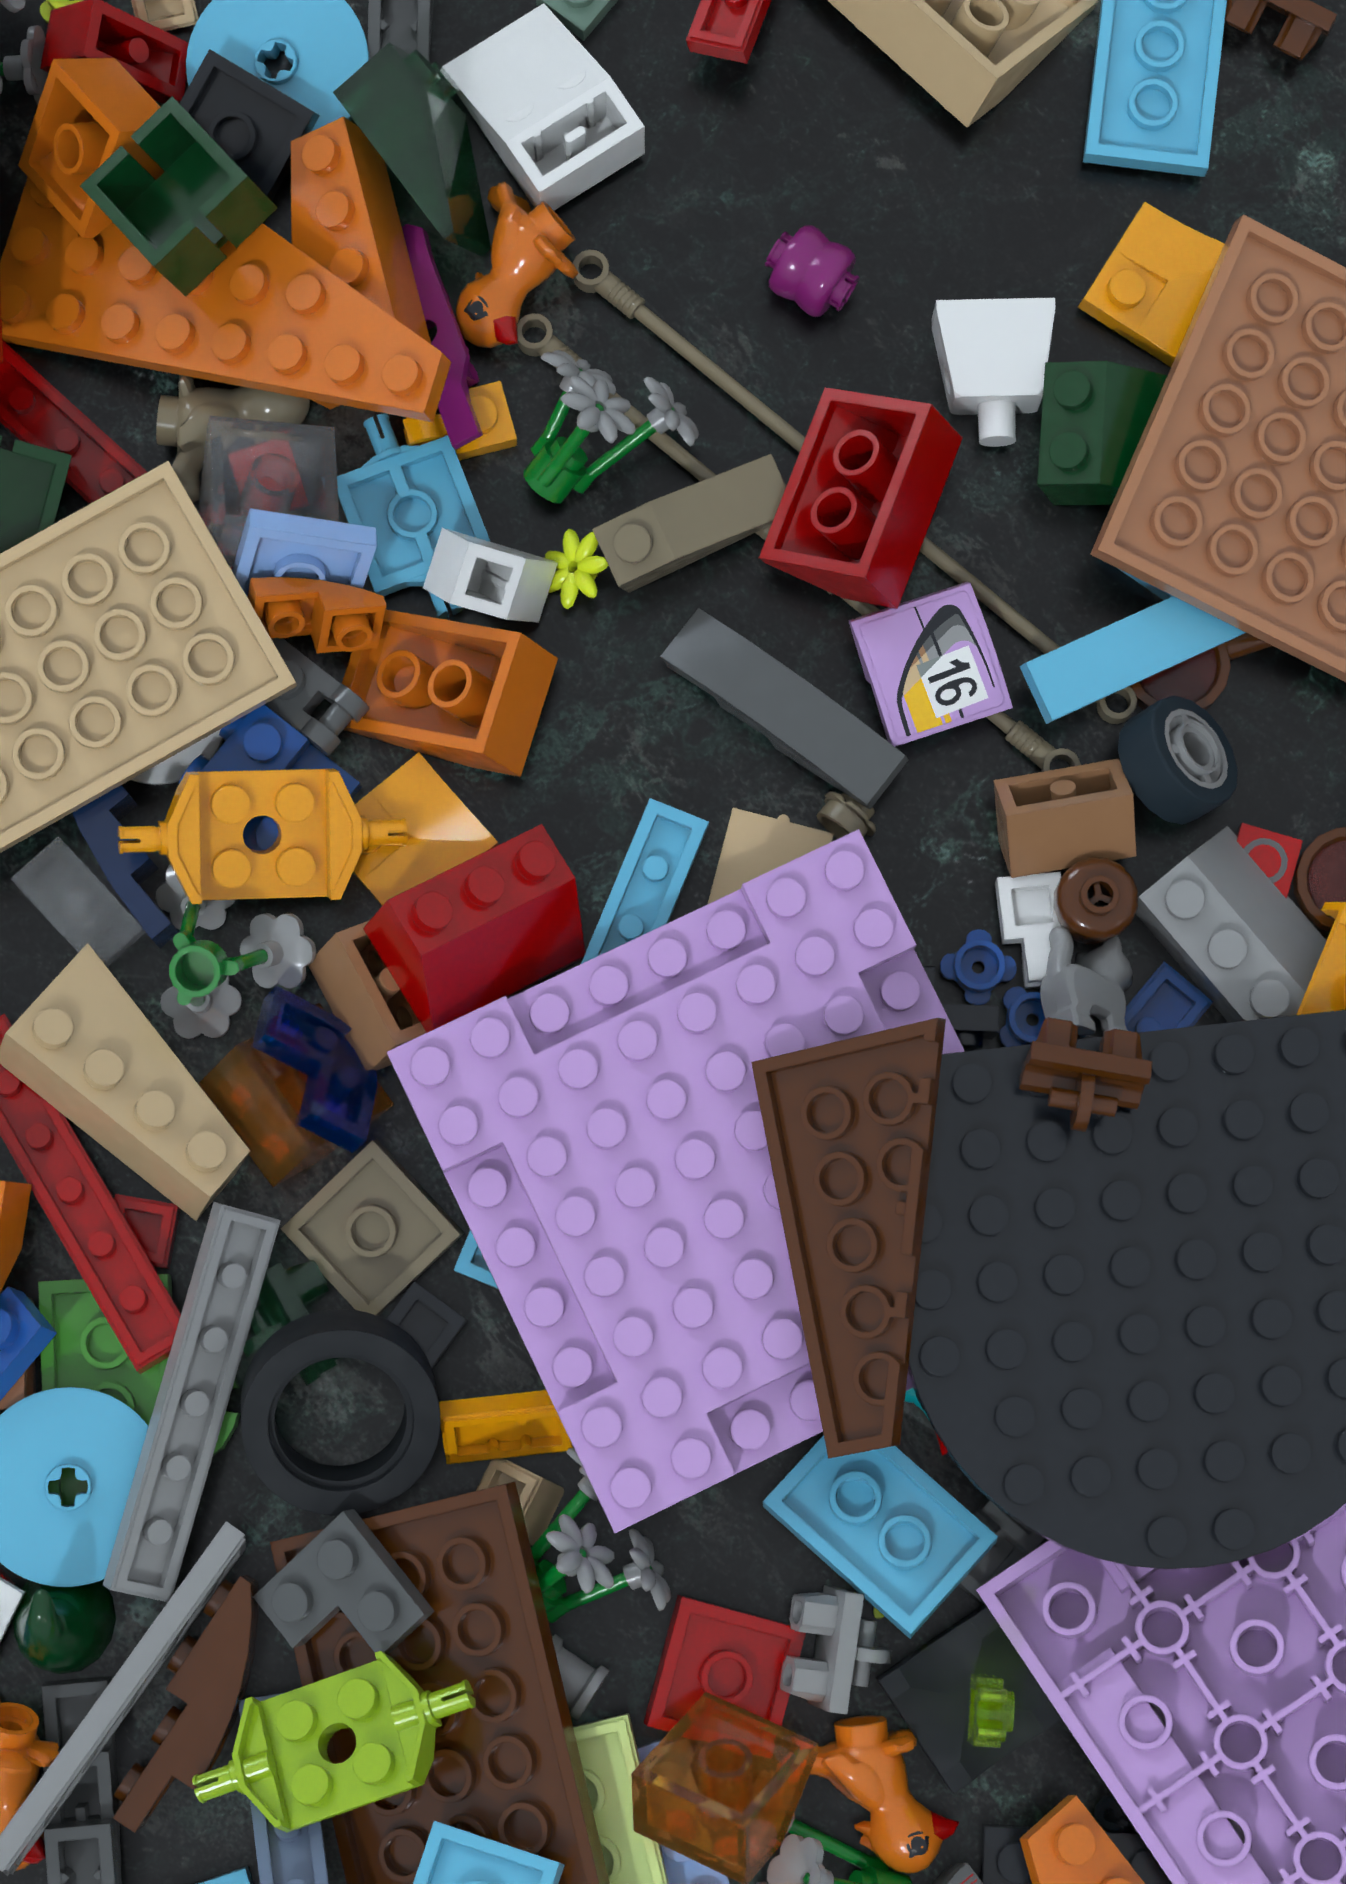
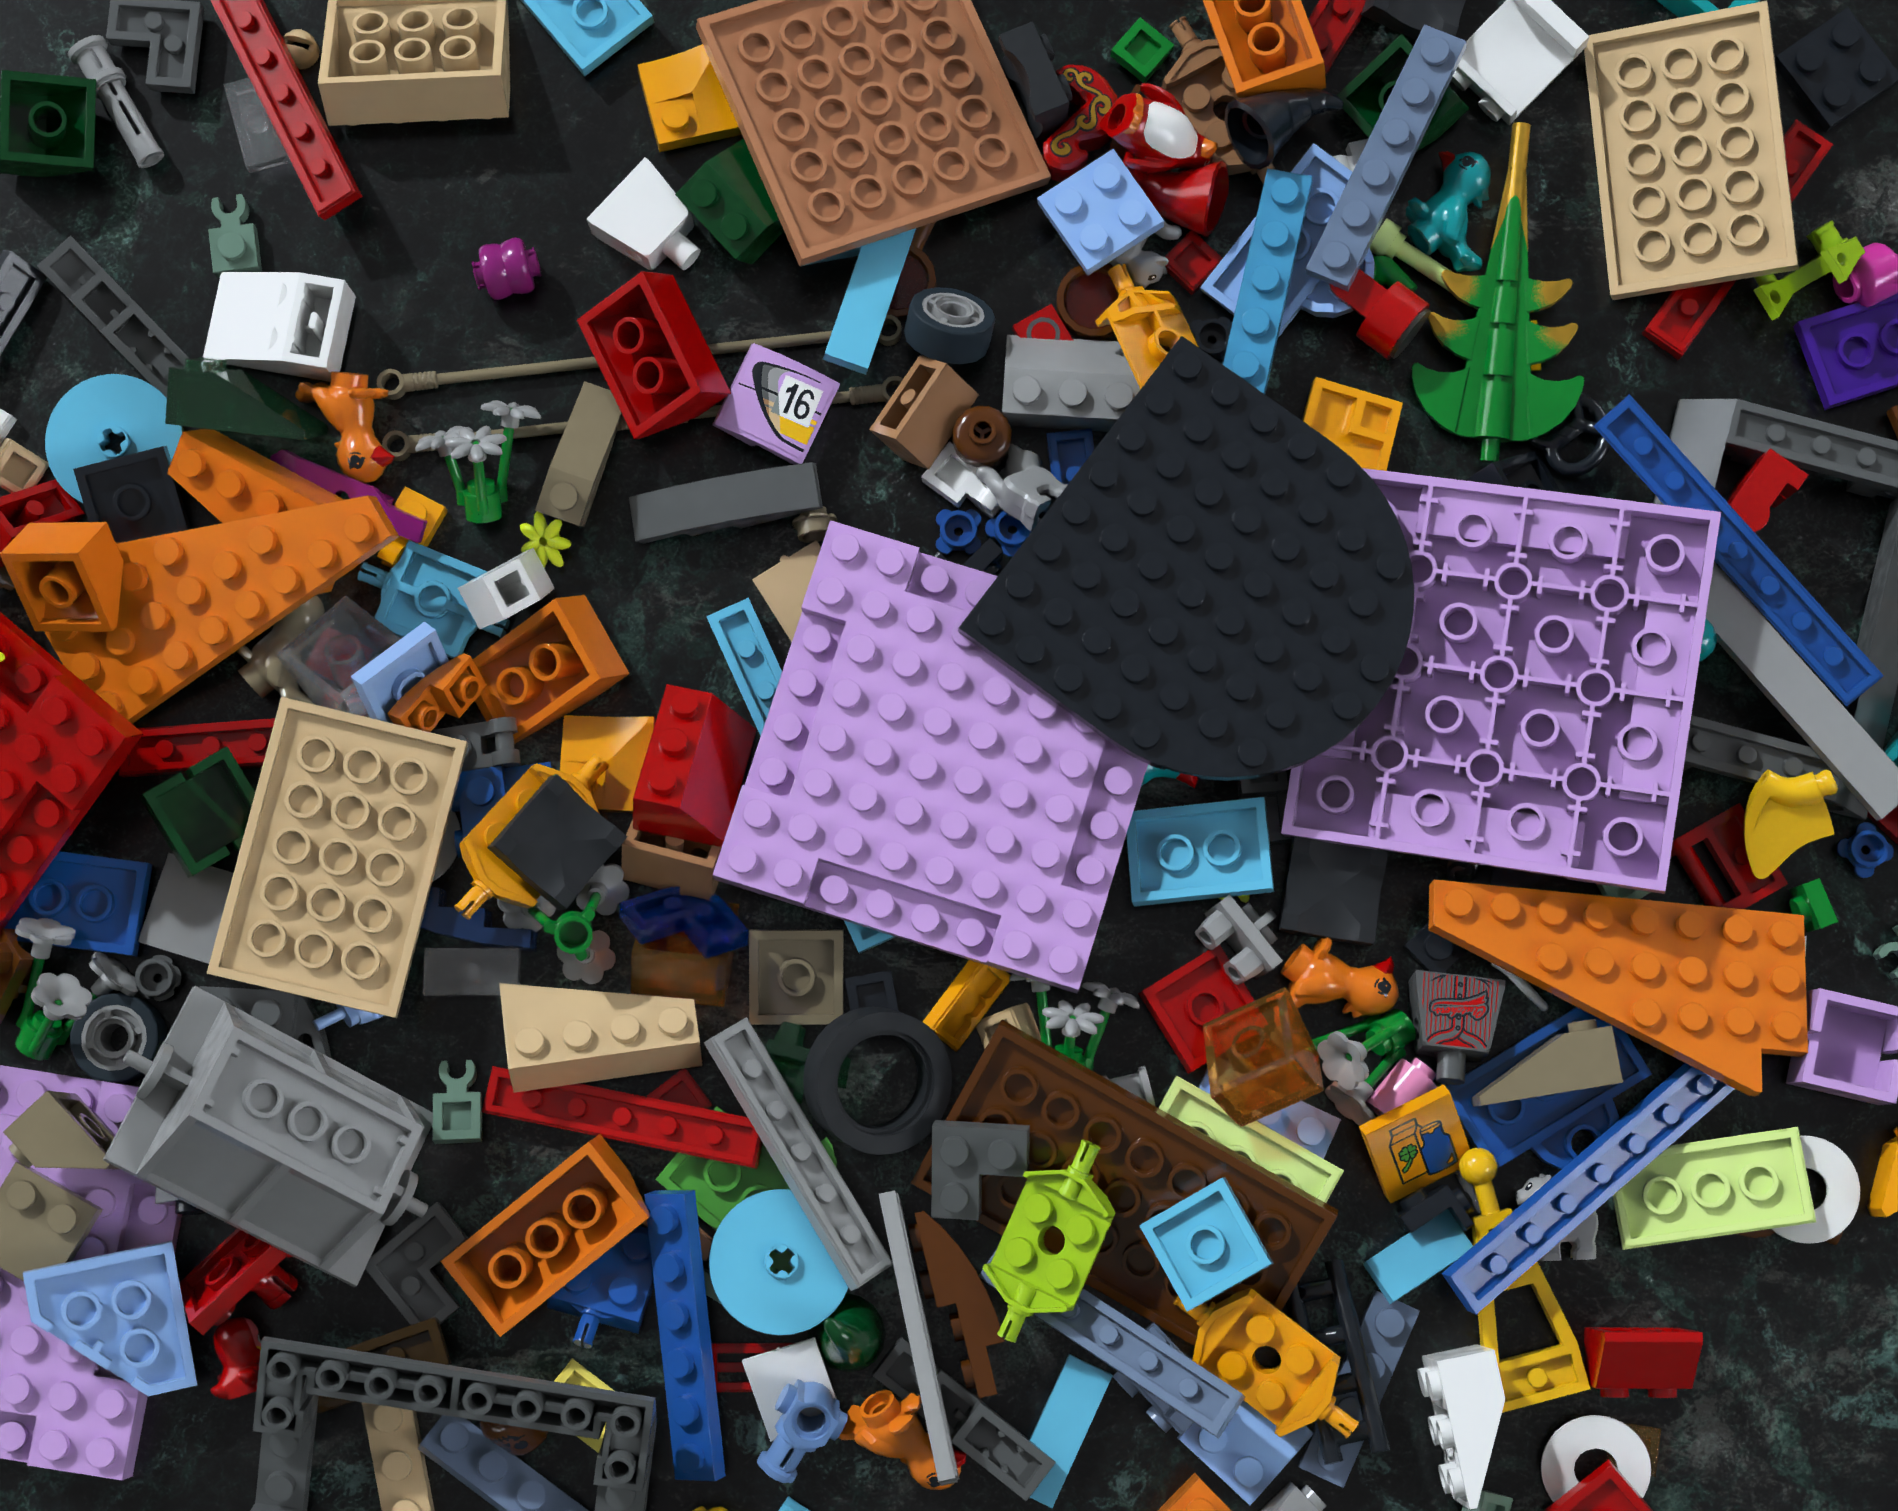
camera: 45 degrees left, 0 degrees up
(187, 210) = (153, 555): dark green piece -> none
(277, 866) = (557, 842): none -> black brick
(851, 1183) = (1013, 693): reddish brown wing -> none
(989, 1711) = (1349, 883): clear neon green plate -> none
(1083, 1078) = (1073, 523): reddish brown hips -> none

